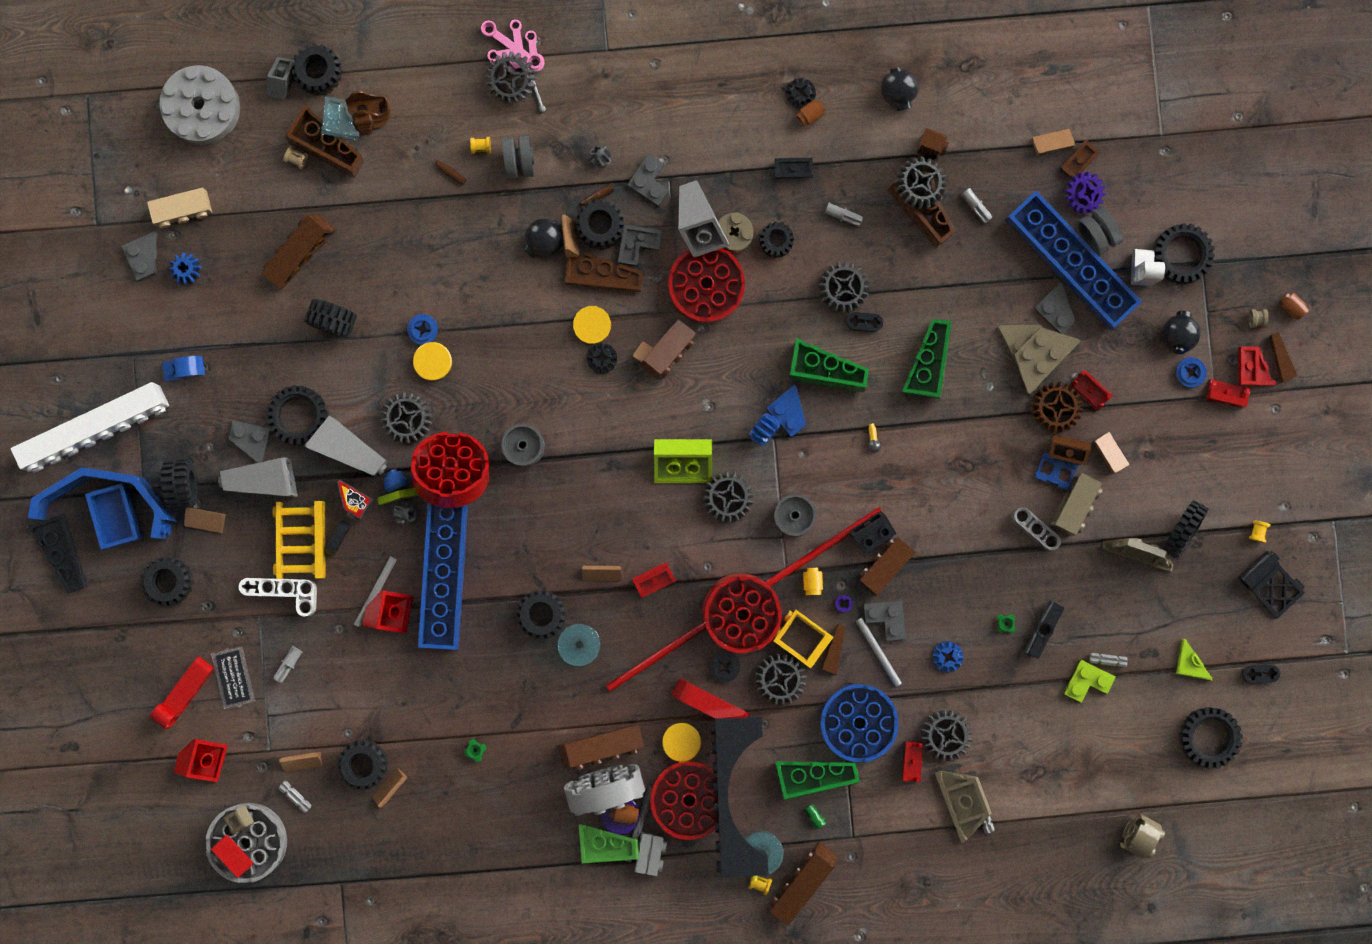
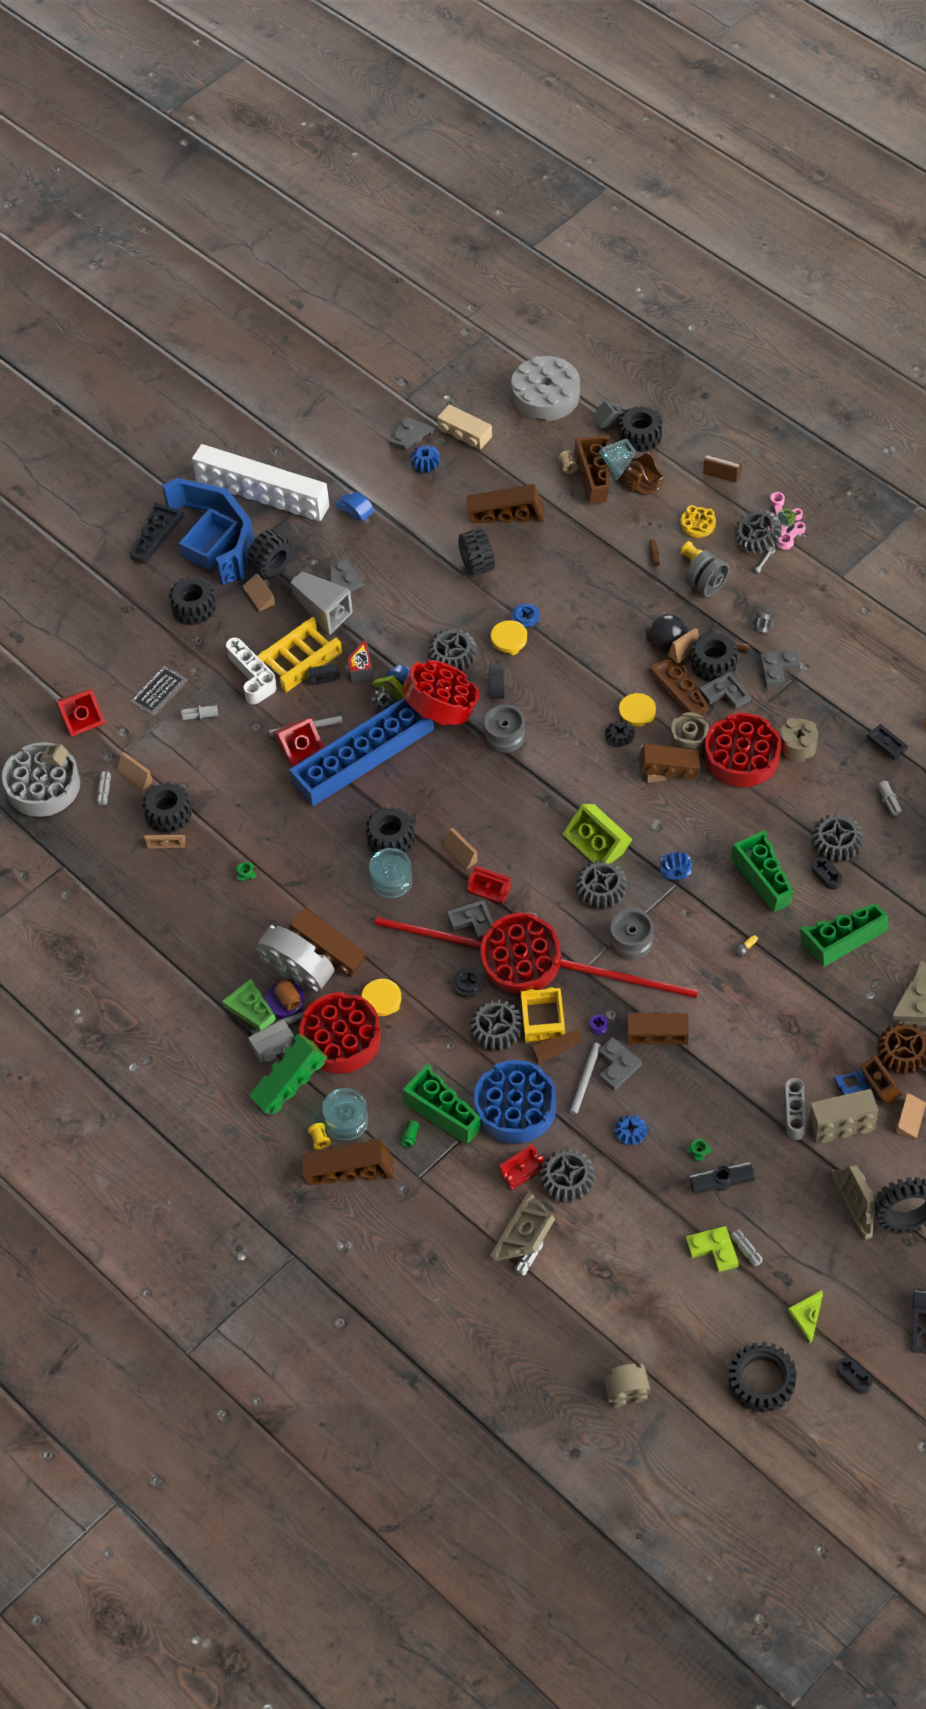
camera: 55 degrees right, 30 degrees down
(182, 694) = (116, 667): red beam -> none
(232, 856) = (22, 767): red hinge -> none
(275, 410) = (388, 573): black tyre -> none
(342, 445) = (392, 626): light grey slope -> none
(416, 41) = (722, 468): none -> reddish brown brick
(452, 110) = (698, 521): none -> yellow tile
(472, 412) = (496, 681): none -> black tyre
(515, 39) = (787, 517): none -> clear green tile
(645, 308) = (689, 732): none -> dark tan brick
(673, 611) = (472, 914): none -> dark grey plate
(698, 222) = (780, 702): light grey slope -> none
(698, 871) = (288, 1075): none -> green wedge
(705, 701) = (429, 991): red beam -> none
(735, 853) = (413, 1015): black arch -> none
(776, 228) = (824, 762): black tyre -> none
(788, 411) = (706, 876): blue wing -> none
(813, 581) = (594, 988): yellow brick -> none
(872, 533) = (672, 997): black brick -> none

